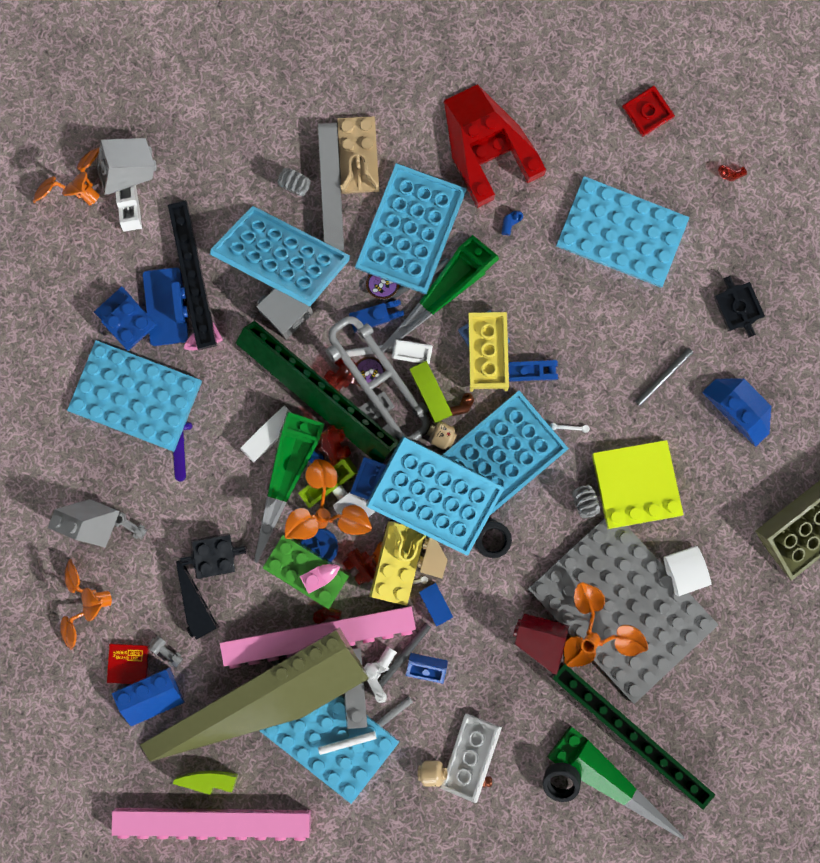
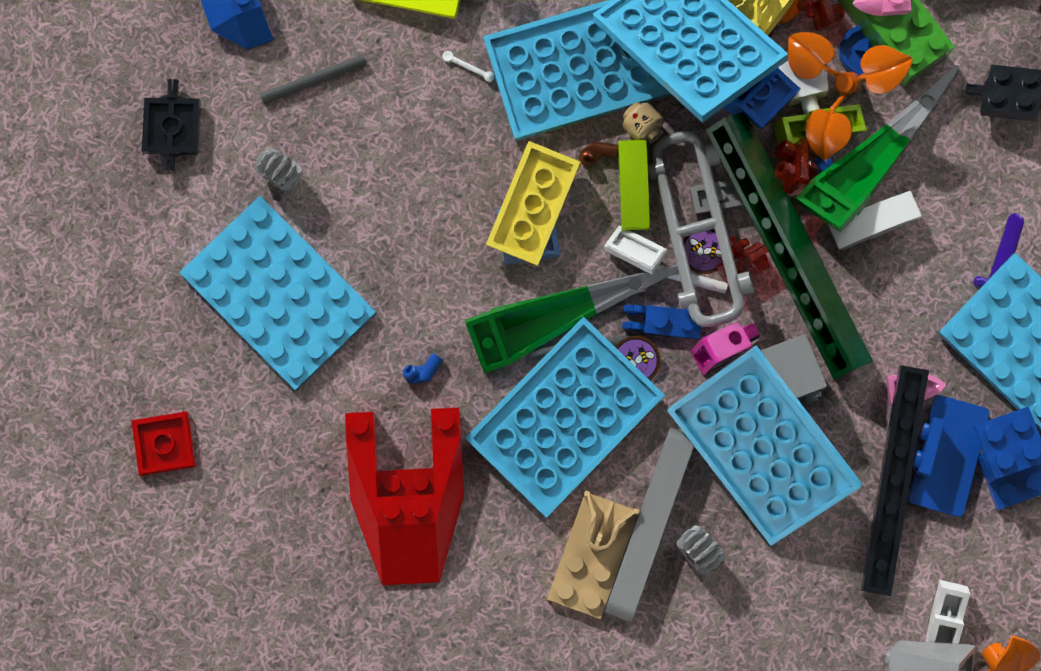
camera: 155 degrees left, 5 degrees down
(336, 307) = (723, 346): none -> dark pink torso
(532, 371) = (484, 157): blue plate -> none
(658, 305) = (278, 169): none -> light grey gear
(730, 174) = (95, 307): clear red arm -> none

